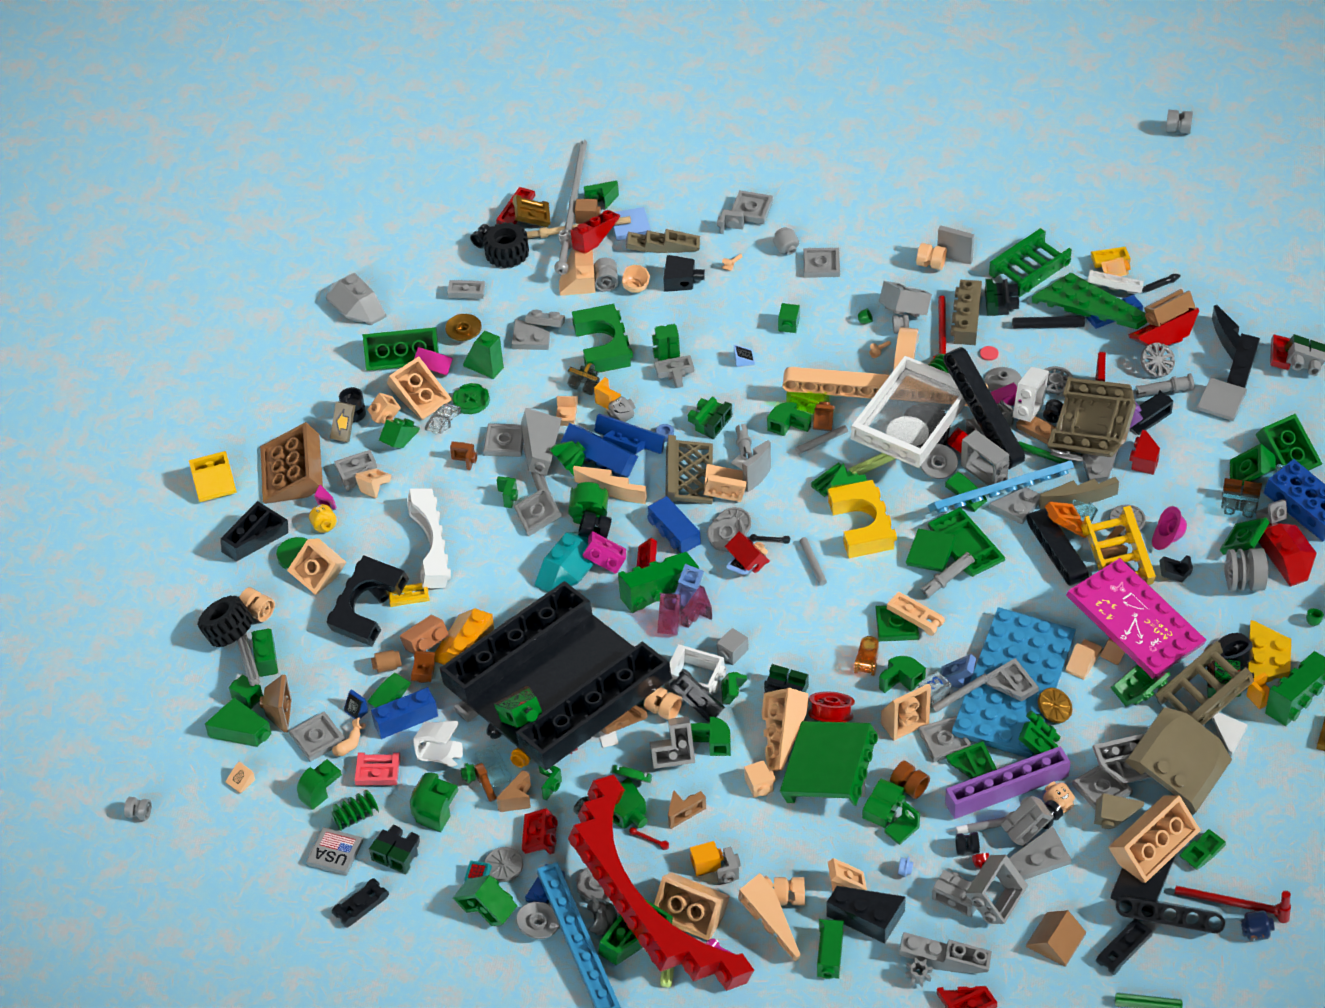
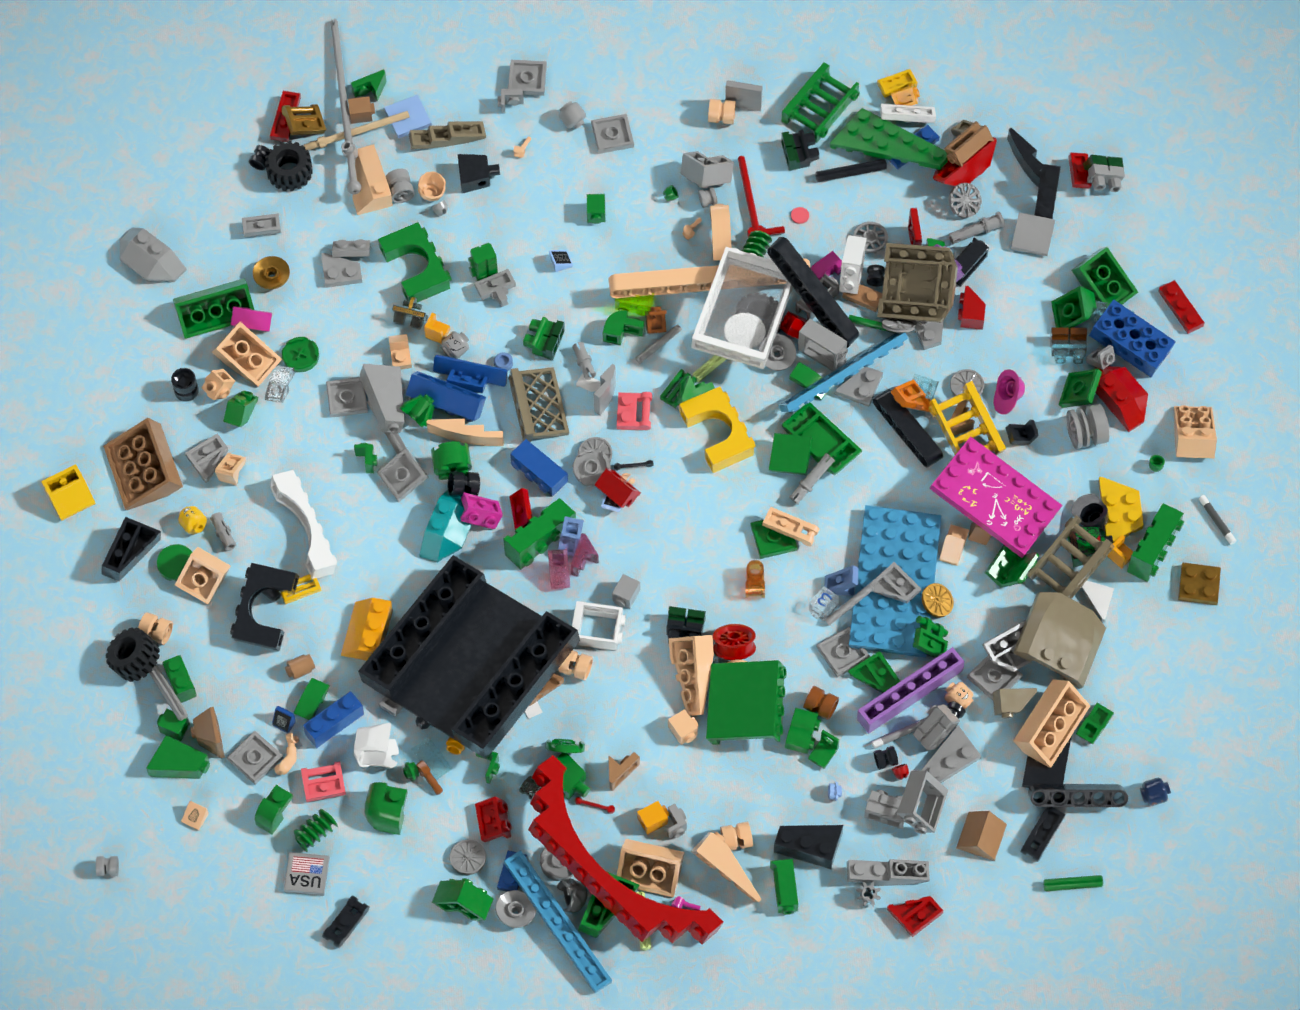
camera: 15 degrees left, 15 degrees up
(324, 497) = (187, 497): dark pink slope -> none
(342, 421) = (181, 407): dark tan tile -> none
(349, 533) = (223, 531): none -> light grey pin
(394, 850) = (364, 863): hips -> none
(423, 666) = (337, 667): dark orange bracket -> none
(424, 634) = (330, 633): nougat brick -> none
(463, 452) = (312, 419): dark orange bracket -> none
(477, 869) = (447, 870): tile -> none
(485, 355) = (304, 305): green slope -> none
(514, 795) = (460, 786): medium nougat slope -> none
(518, 707) = (447, 701): green torso -> none
(592, 232) = (375, 137): red slope -> none
(639, 297) = (440, 208): none -> light grey hinge
(677, 749) = (600, 712): light grey brick -> none
(697, 696) = (607, 653): black plate -> none
(716, 733) = (633, 686): green brick -> none
(724, 483) = (576, 411): light nougat bracket -> none
(730, 686) = (634, 636): green bracket -> none
(776, 491) = (628, 409): none -> coral plate
(813, 561) = (680, 483): light grey bar -> none
(845, 875) = (784, 813): light nougat slope -> none
(903, 670) = (791, 588): green brick -> none
(907, 712) = (804, 635): light nougat slope -> none
(967, 312) = (770, 172): dark tan brick -> none
(1001, 377) = (816, 251): light grey dish -> none
(1086, 492) = (909, 366): dark tan slope -> none
(1162, 282) = (961, 98): black piece -> none
(1281, 910) = (1173, 773): red bar -> none

